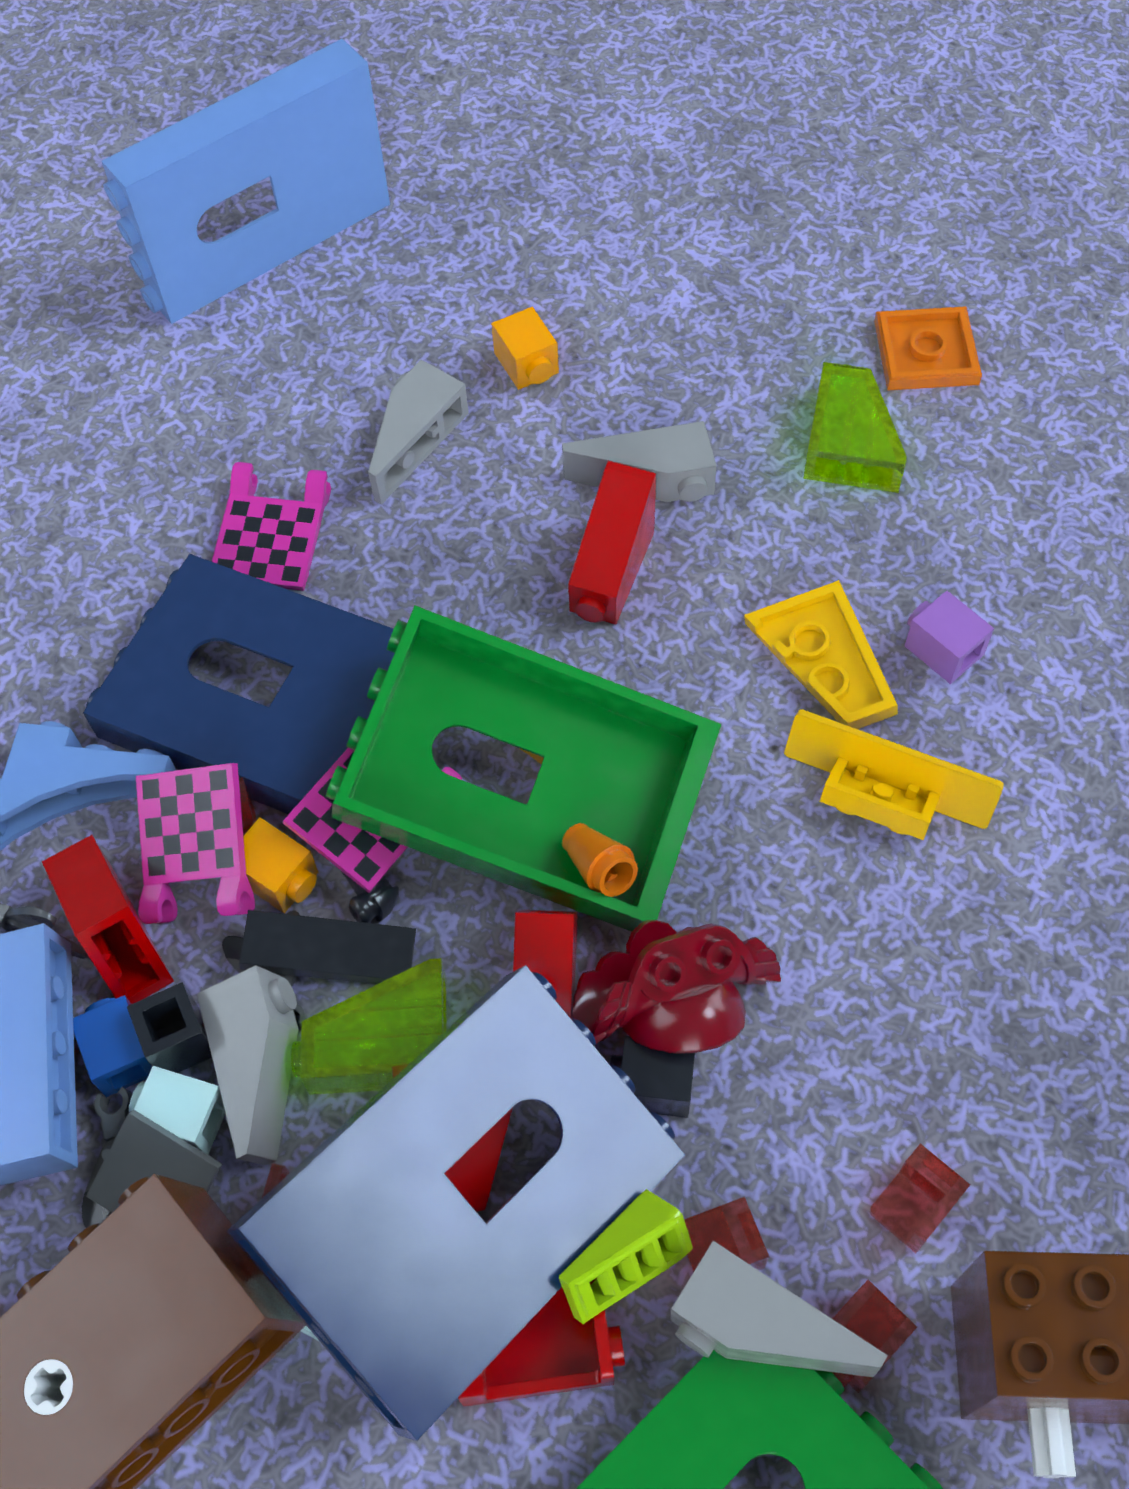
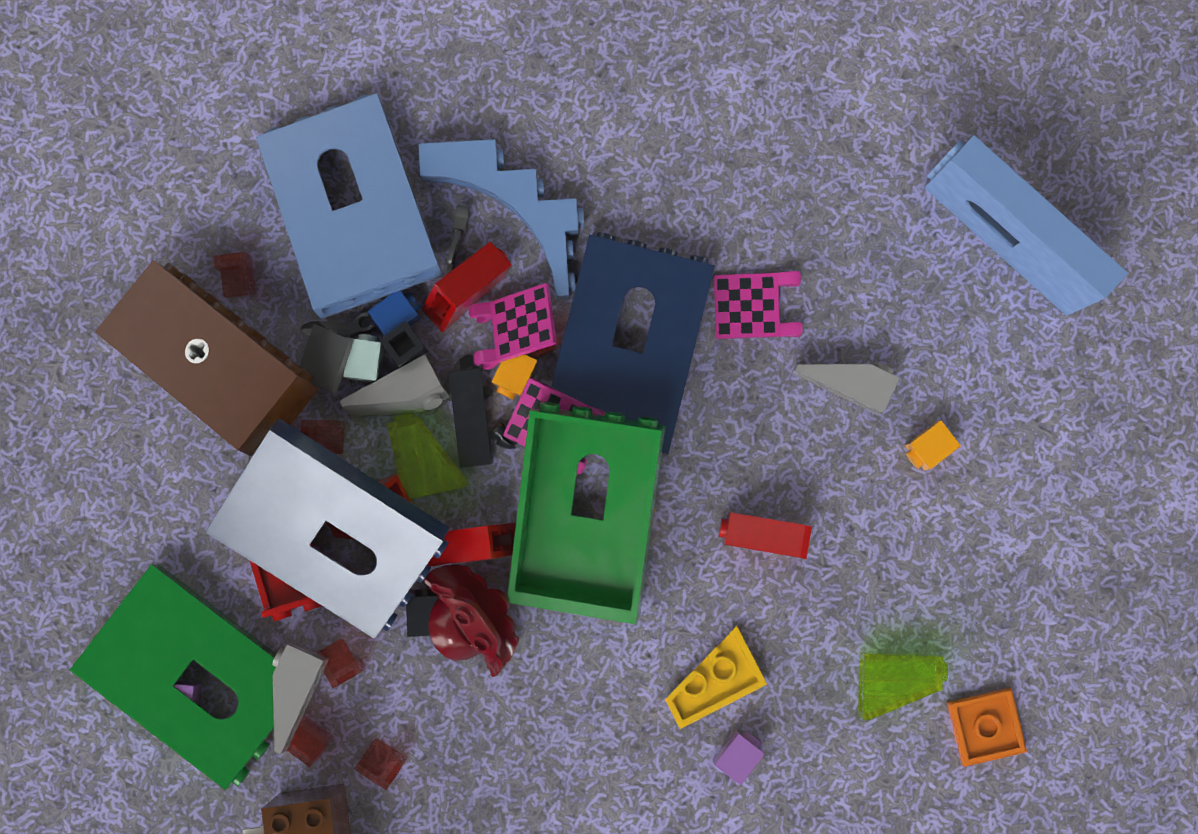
camera: 80 degrees right, 25 degrees up
(602, 862) = (537, 566): orange cone -> none
(626, 1255) = (318, 618): lime slope -> none
(676, 454) = (845, 552): light grey slope -> none
(889, 780) = (627, 725): yellow bracket -> none

